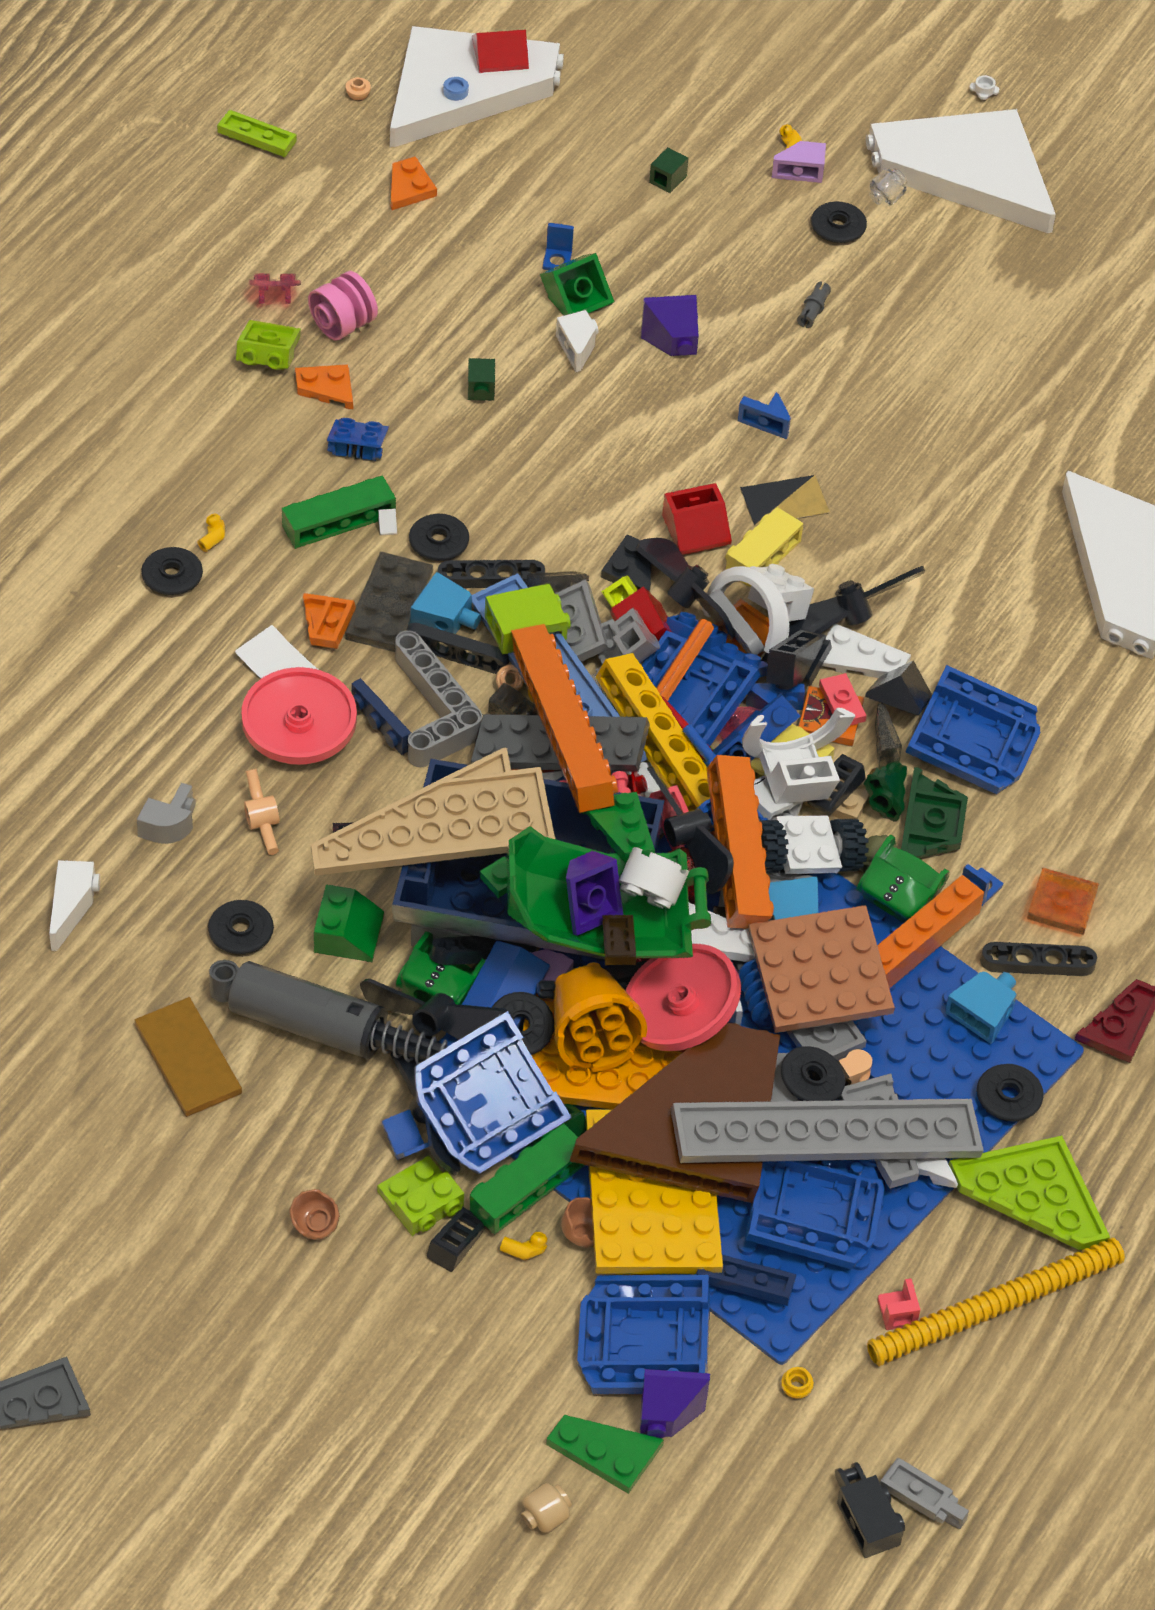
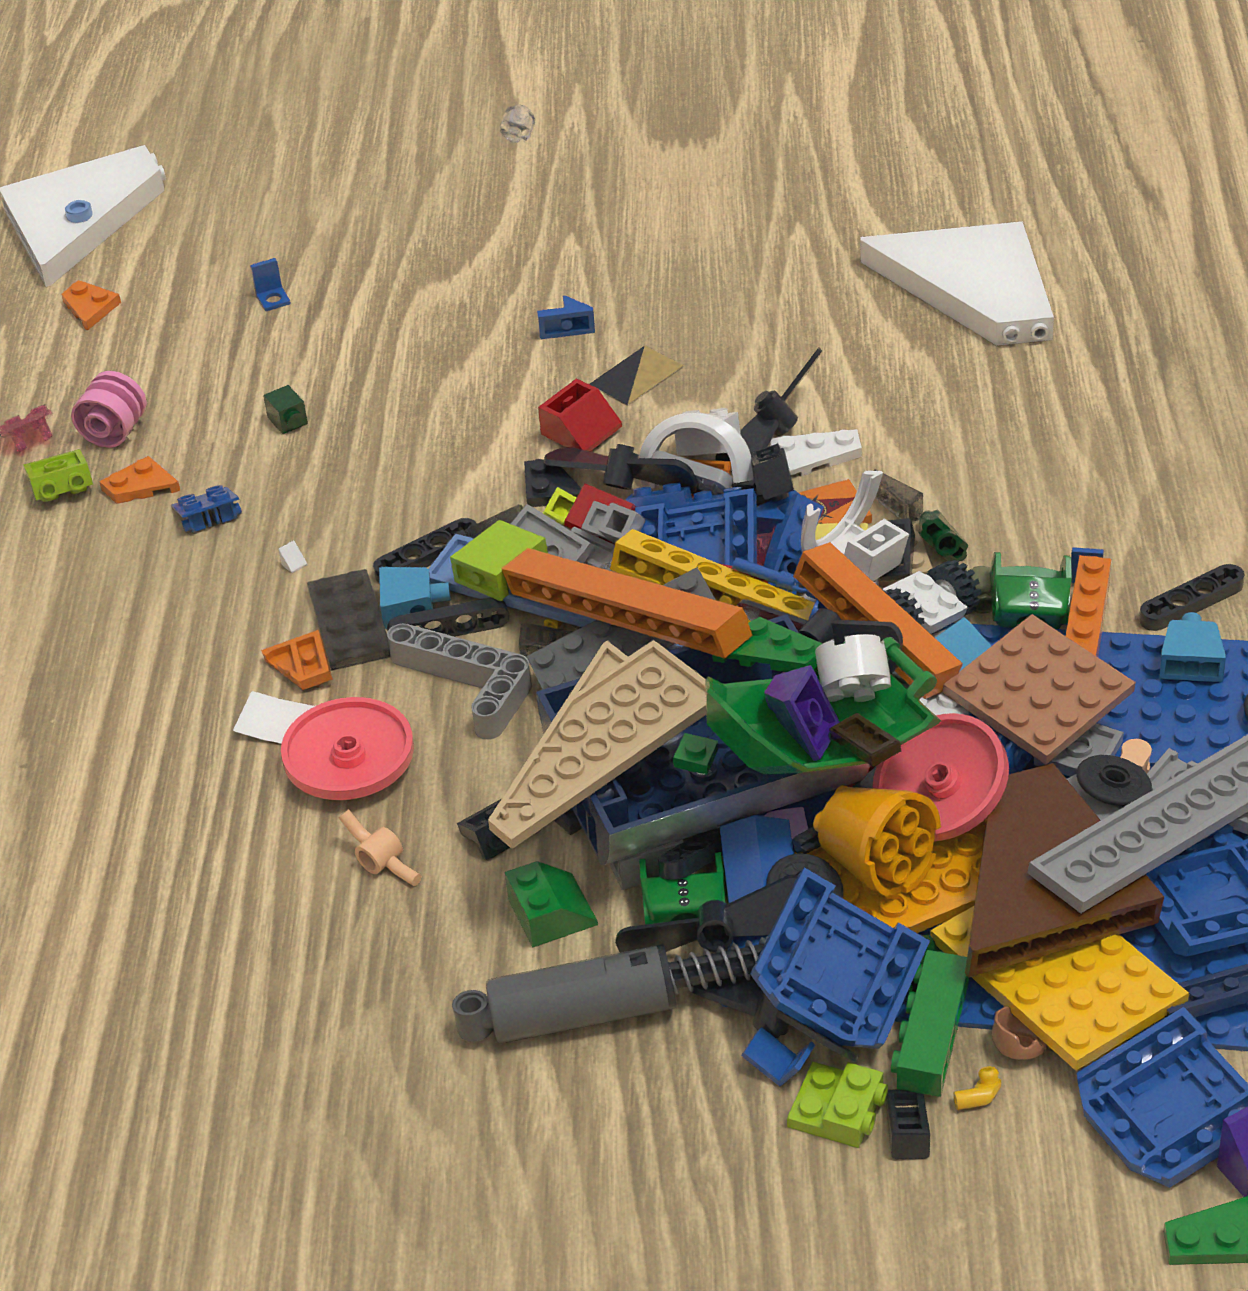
camera: 25 degrees left, 10 degrees down
(72, 898) = (244, 1026): white slope -> none
(159, 581) = (96, 708): black wheel -> none
(167, 822) = (288, 908): light grey brick -> none
(188, 1056) = (489, 1110): pearl gold tile -> none
(215, 534) = (129, 644): yellow arm -> none
(245, 942) = (430, 979): black wheel -> none
(314, 1214) = (753, 1180): nougat hair -> none
(337, 511) = (237, 571): green brick -> none
(380, 716) = (430, 710): dark blue plate -> none
(452, 546) = (369, 547): black wheel -> none
(501, 50) = (97, 166): red slope -> none
(513, 671) = (520, 614): light nougat plate -> none
(577, 337) = (343, 340): white slope -> none
(578, 285) = (312, 304): green slope -> none
(668, 170) = (318, 192): dark green brick -> none
(671, 324) = (424, 290): dark purple slope -> none
(685, 658) = (673, 511): orange axle -> none
(767, 542) = (654, 403): light yellow brick -> none
(789, 135) = (403, 130): yellow arm -> none
(800, 162) = (429, 139): lavender slope -> none
(814, 305) = (530, 228): dark grey pin -> none
(823, 223) = (484, 166): black wheel -> none
(840, 694) = (831, 487): coral plate -> none
(902, 689) = (876, 452): black slope -> none
(933, 817) = (996, 530): dark green wing -> none
(969, 161) = (571, 79): white slope -> none
(976, 731) = (967, 455): blue wedge -> none
(984, 87) = (531, 31): white plate -> none
(1063, 901) = (1168, 542): clear orange plate -> none

